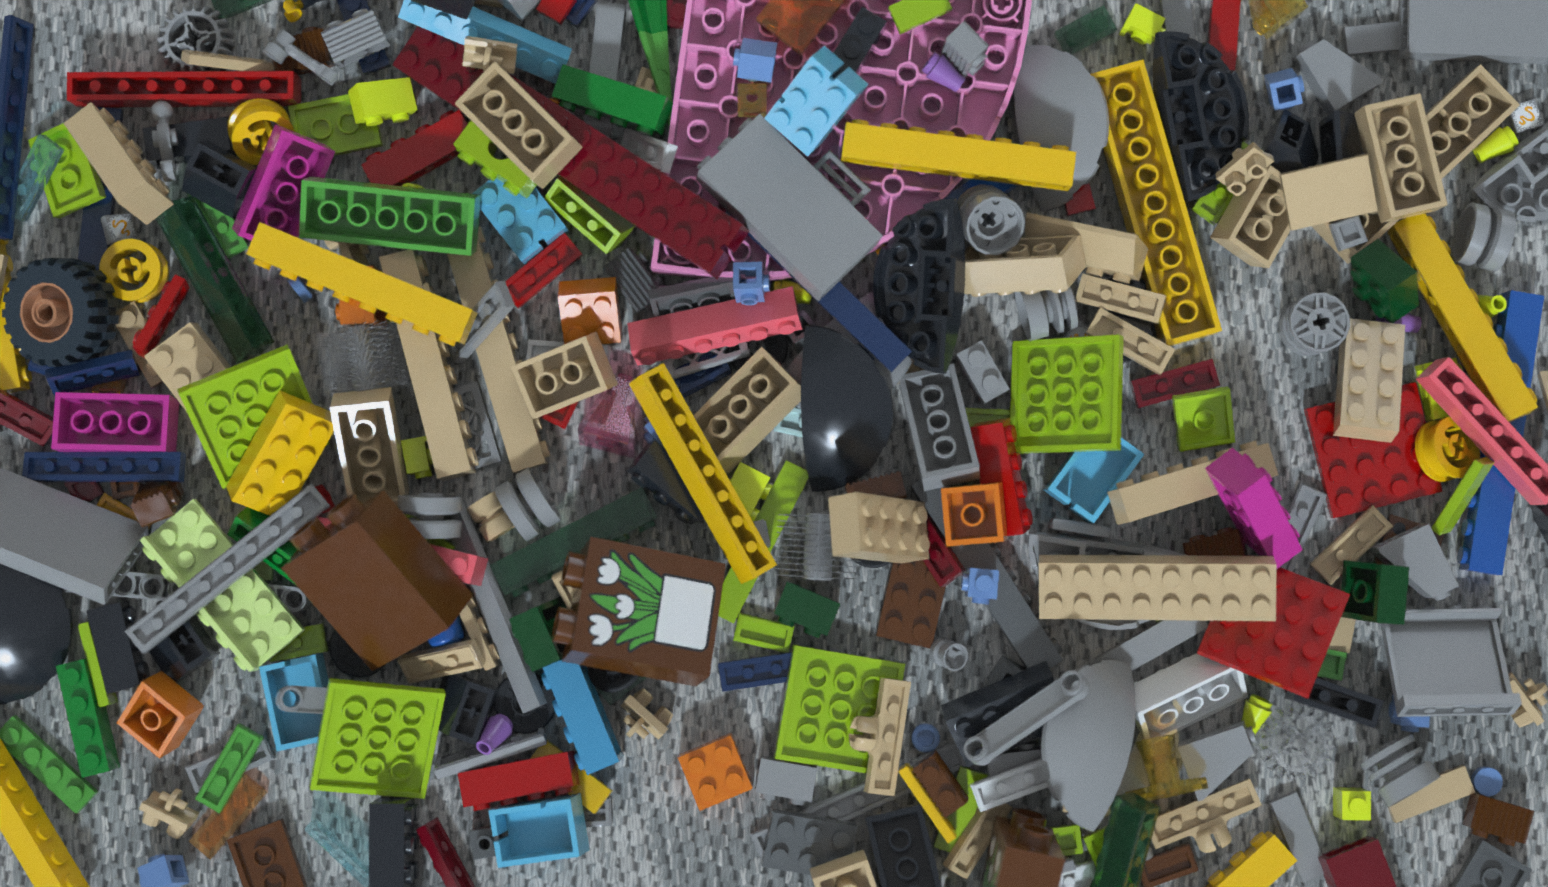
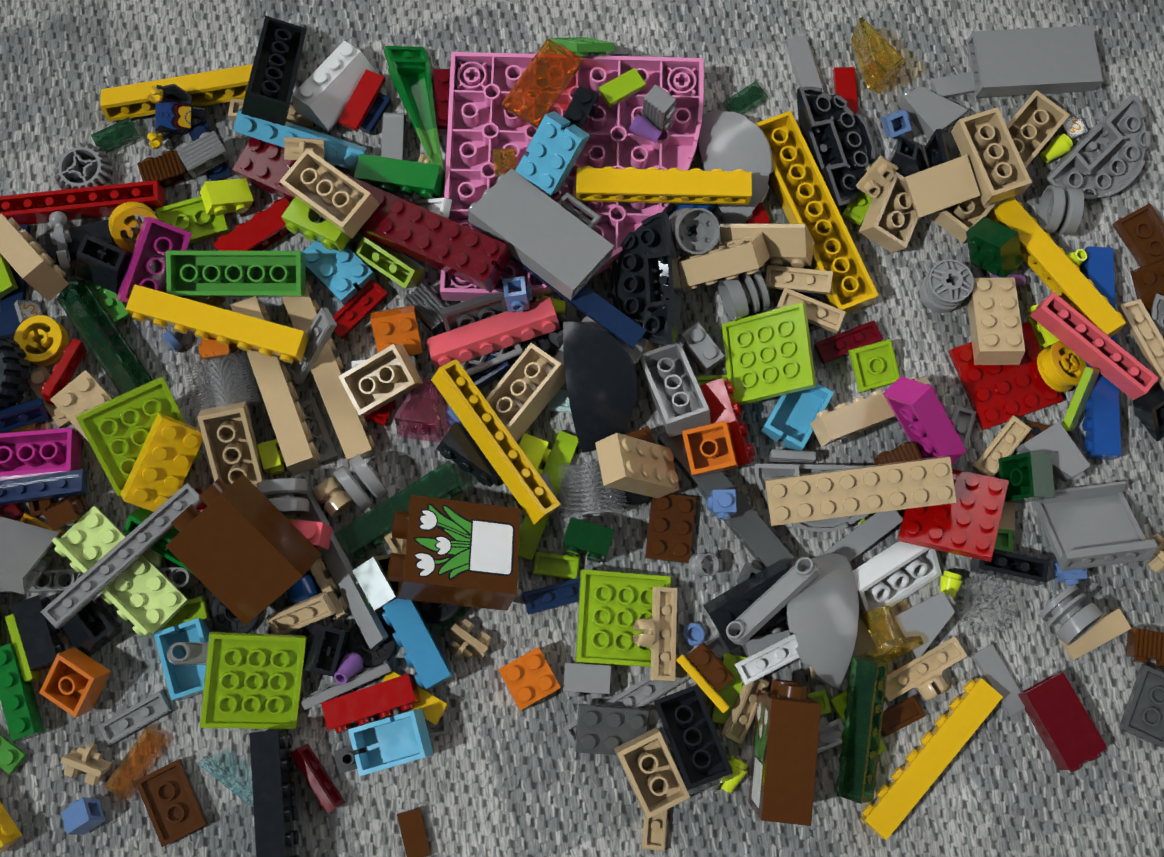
camera: 10 degrees left, 10 degrees down
(225, 61) = (102, 178): tan tile -> none
(229, 768) = (134, 721): bright green tile -> none
(283, 46) = (148, 164): light grey brick -> none
(755, 60) = (504, 132): medium blue brick -> none
(942, 560) = (689, 491): dark red plate -> none
(1142, 25) = (785, 90): neon yellow brick -> none
(1348, 233) = (961, 215): light grey tile -> none
(1351, 803) = (1037, 647): neon yellow brick -> none
(1486, 781) = (1139, 618): medium blue tile -> none

